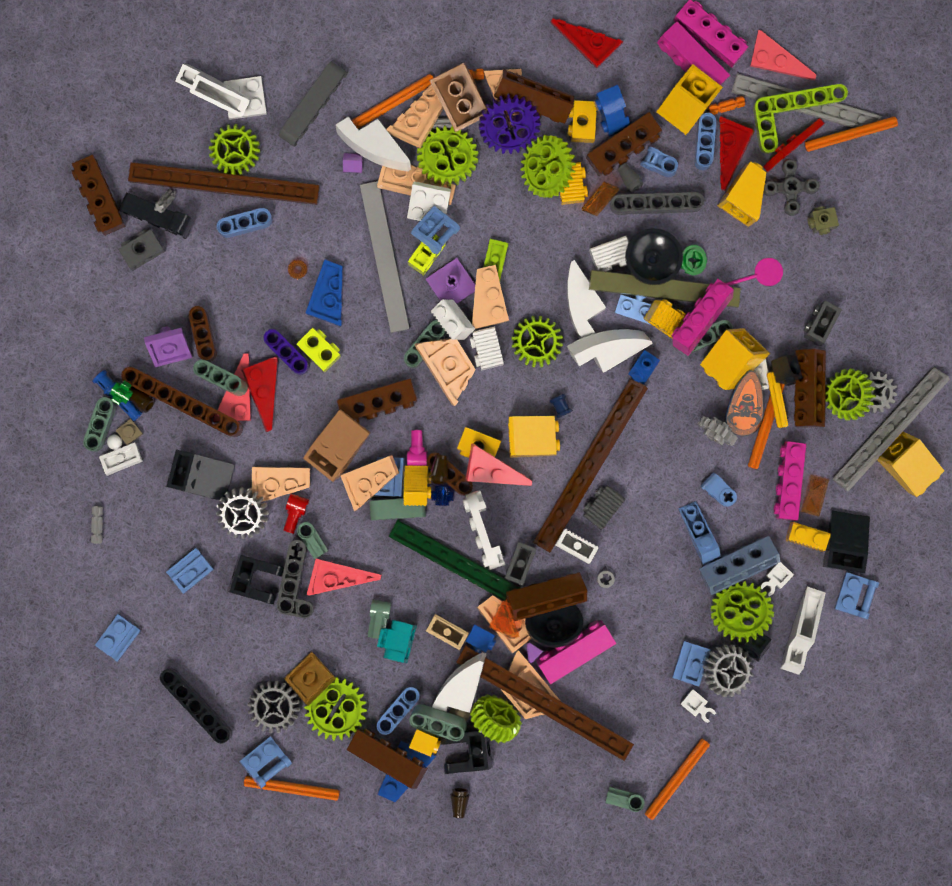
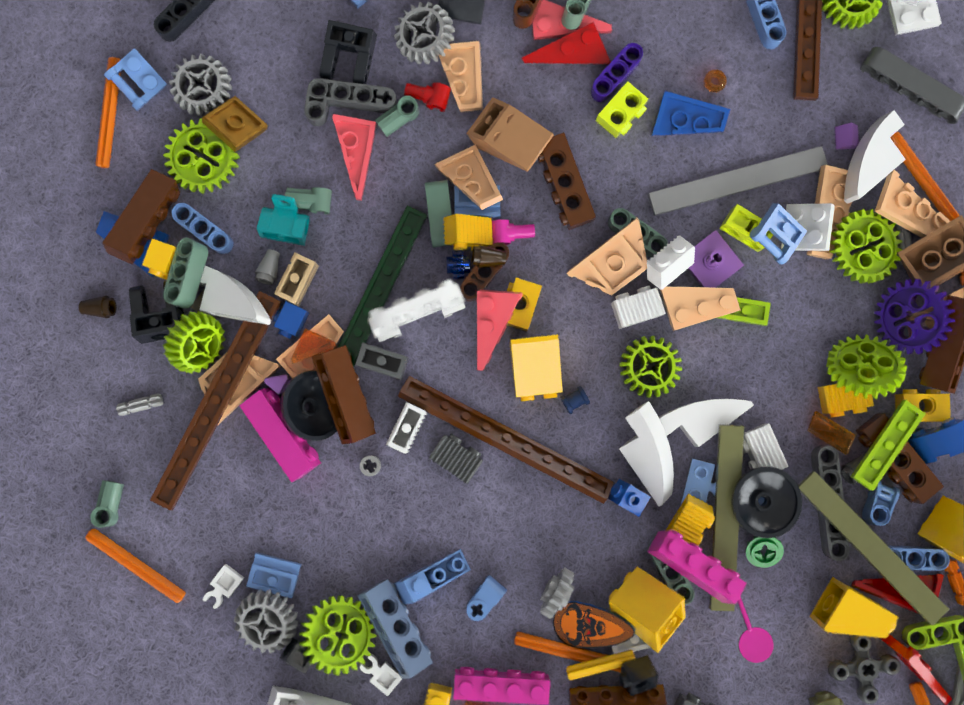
camera: 85 degrees right, 0 degrees up
(437, 657) = (268, 268): none -> light grey cone
(543, 770) = (139, 404): none -> light grey axle
(613, 155) = (888, 445): none -> lime plate
(695, 174) = (872, 548): none -> olive tile

